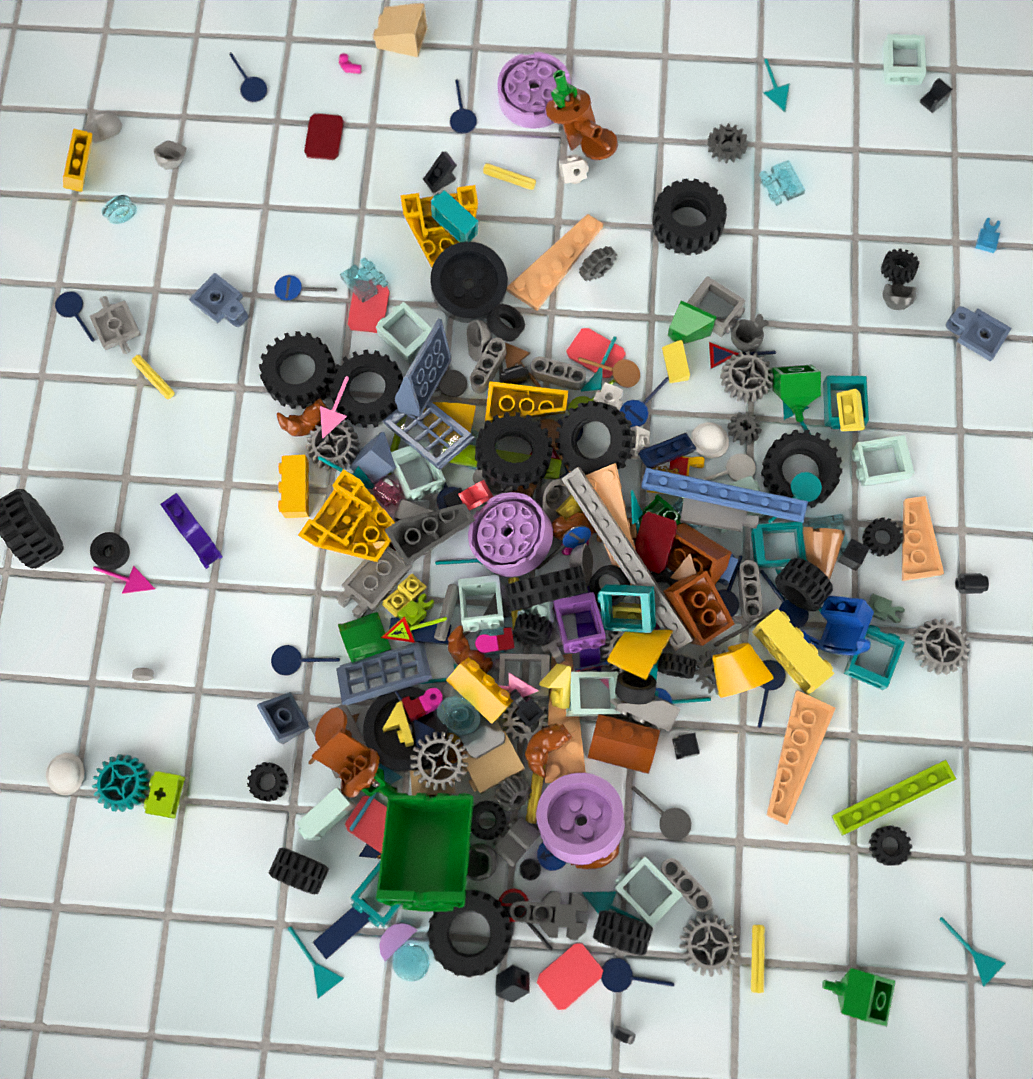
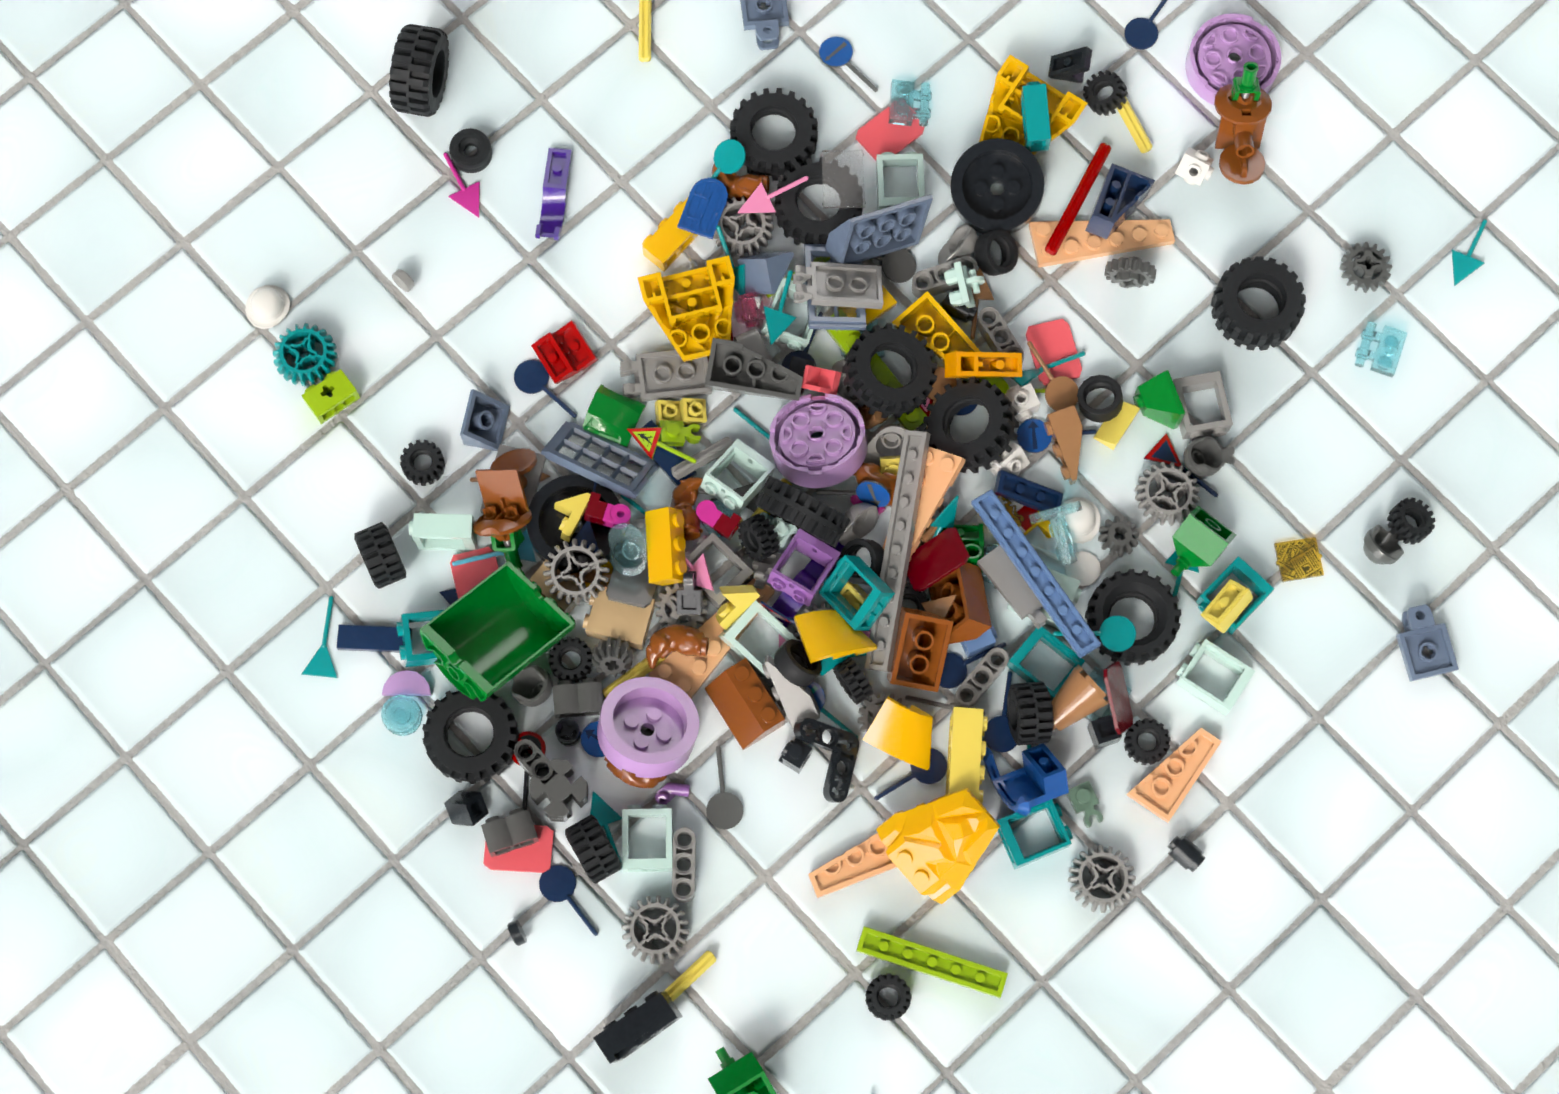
camera: 35 degrees right, 0 degrees up
(285, 409) = (729, 157): none -> teal piece
(293, 625) = (564, 352): none -> red slope
(298, 453) = (704, 208): none -> blue window
(370, 359) = (843, 179): none -> clear piece
(414, 482) = (777, 320): none -> teal piece
(431, 426) = (839, 285): none -> light grey tile
(470, 165) = (1111, 102): none -> black tyre
(498, 355) = (960, 275): none -> light aqua hips
(523, 249) = (1077, 199): none -> red axle
(546, 228) = (1117, 199): none -> dark blue wedge
(556, 973) = (509, 832): none -> dark grey brick
(568, 396) = (983, 364): none -> light orange slope
(629, 845) = (670, 790): none -> medium lavender arm
(644, 344) = (1097, 382): none -> black tyre
(656, 395) = (1067, 434): none -> medium nougat slope
(707, 456) = (1059, 529): none -> clear light blue bracket
(711, 719) = (839, 753): none -> black beam
(762, 1022) = (637, 1026): none -> black wedge
(830, 718) = (939, 842): none -> yellow wedge
(845, 525) = (1118, 697): none -> piece
(857, 347) = (1298, 559): none -> clear yellow piece
(987, 237) = (1526, 571): dark azure plate -> none

